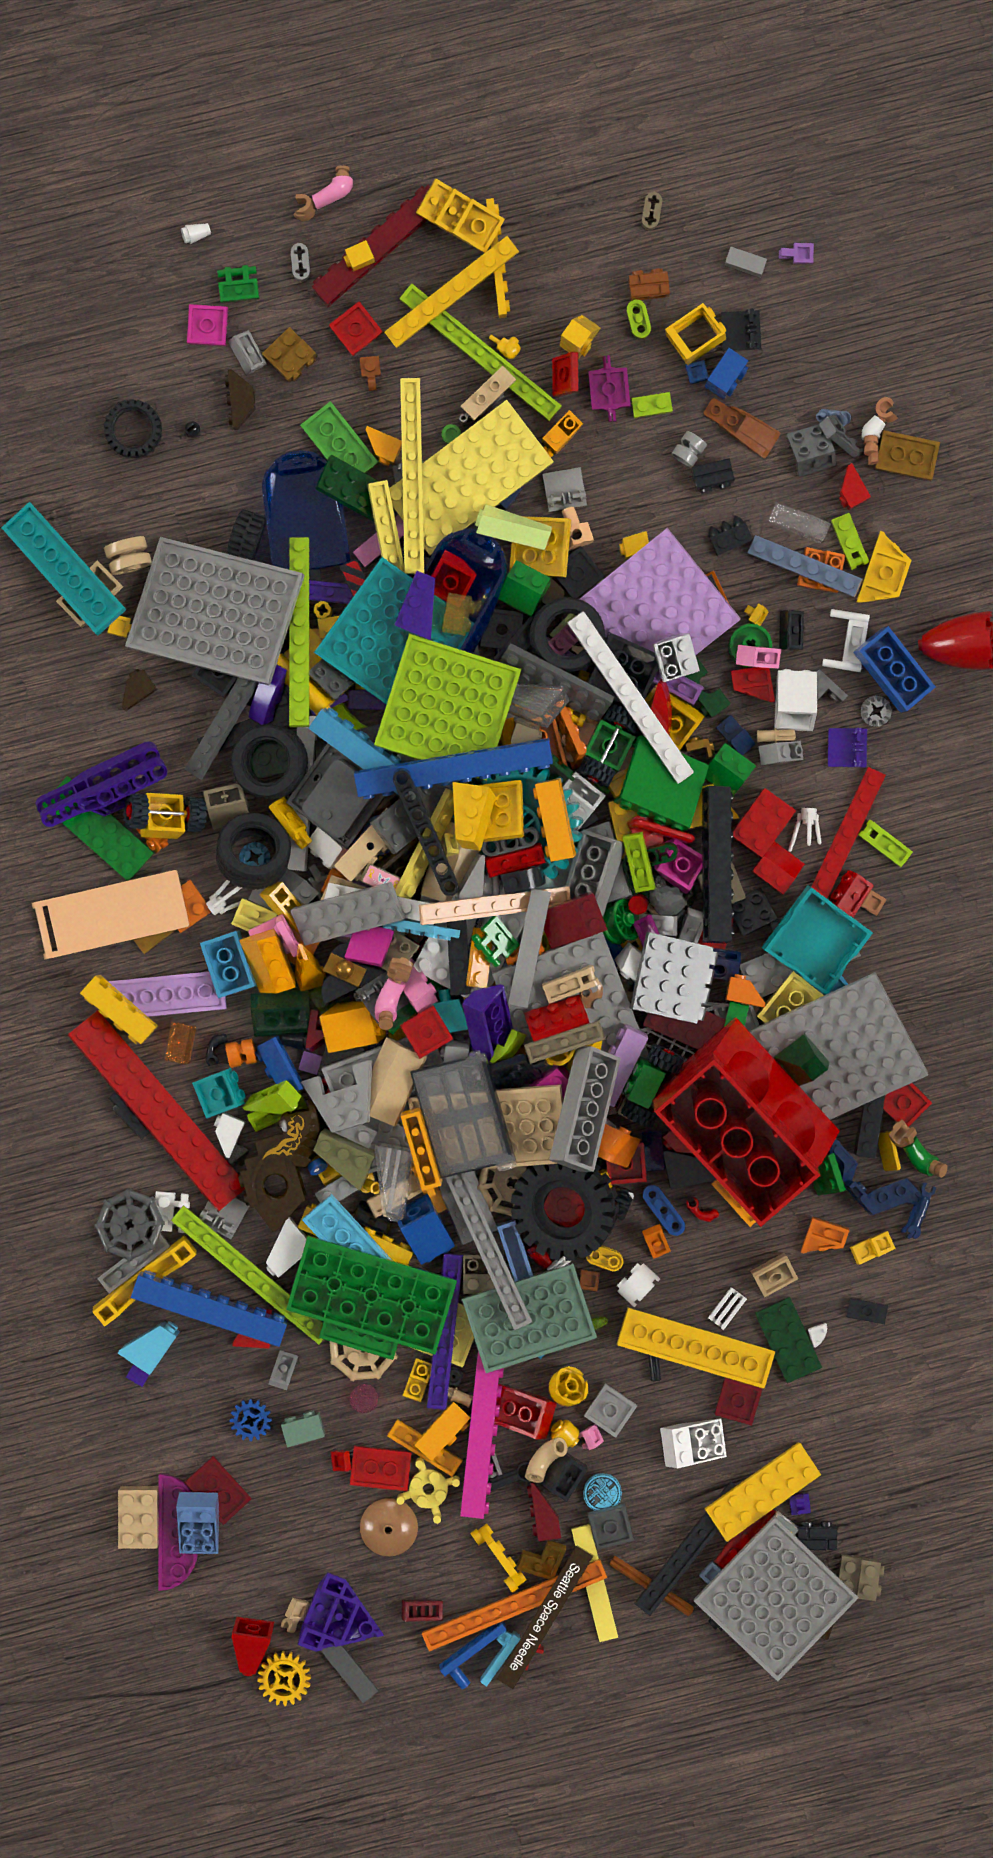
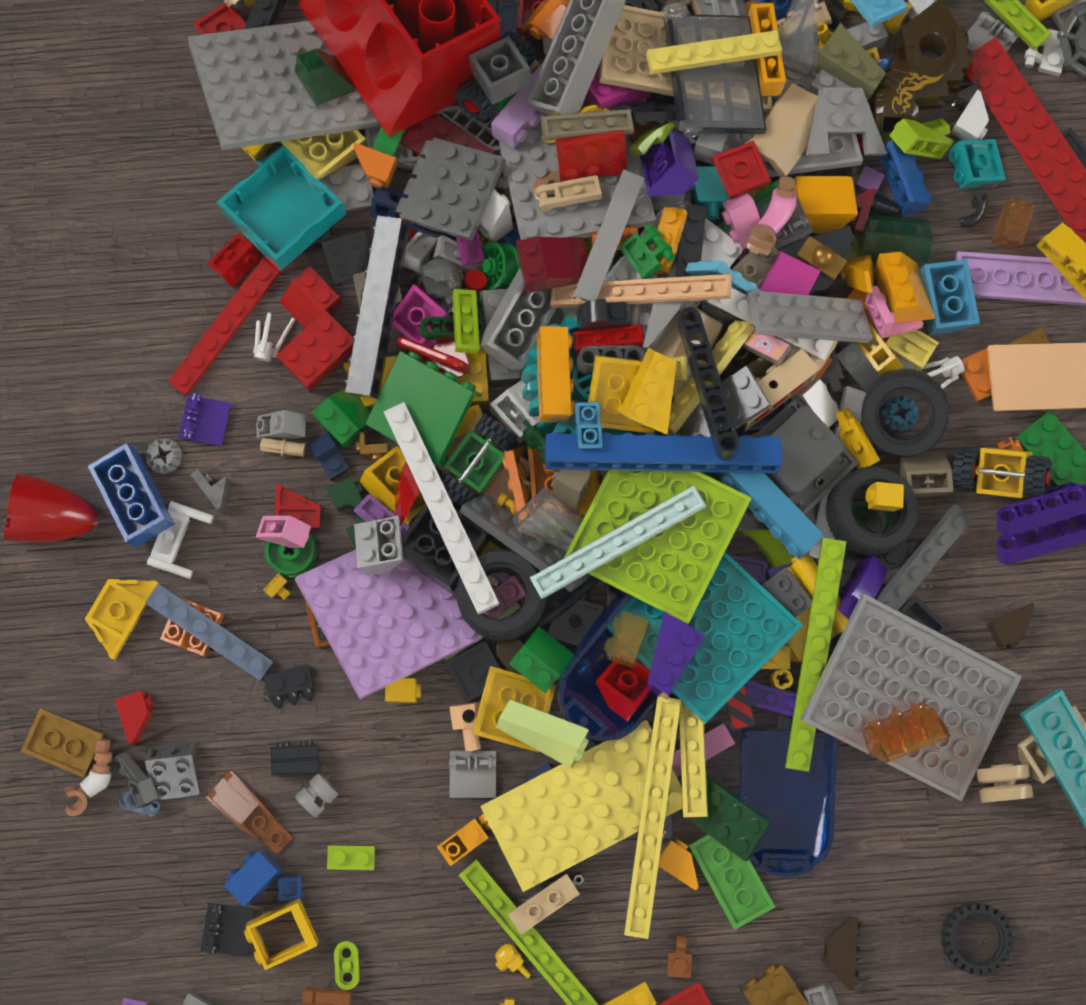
camera: 170 degrees left, 10 degrees down
(120, 627) = (1021, 701): yellow plate -> none
(195, 432) = (901, 921): black hinge -> none
(218, 577) = (904, 732): none -> clear orange slope
(241, 1053) = (948, 200): orange wheel -> none
(246, 534) = (860, 782): black tyre -> none
(262, 769) = (885, 496): none -> yellow brick
(450, 432) = (595, 865): bright green tile -> none
(466, 1129) = (713, 52): none -> light yellow plate
(478, 688) = (617, 542): none -> light aqua tile
(519, 776) = (588, 425): none -> dark azure slope
(565, 374) = (447, 911): red plate -> none
(579, 335) = (421, 956): yellow wedge -> none
(609, 388) = (398, 886): magenta plate -> none
(647, 1077) = (500, 70): none -> dark grey brick
(791, 630) = (241, 564): black slope -> none
(795, 700) = (251, 482): white slope -> none
(799, 522) = (204, 685): clear slope -> none
(849, 540) = (152, 655): lime plate -> none
(873, 903) = (210, 245): nougat tile -> none
(886, 843) = (183, 306): lime plate -> none

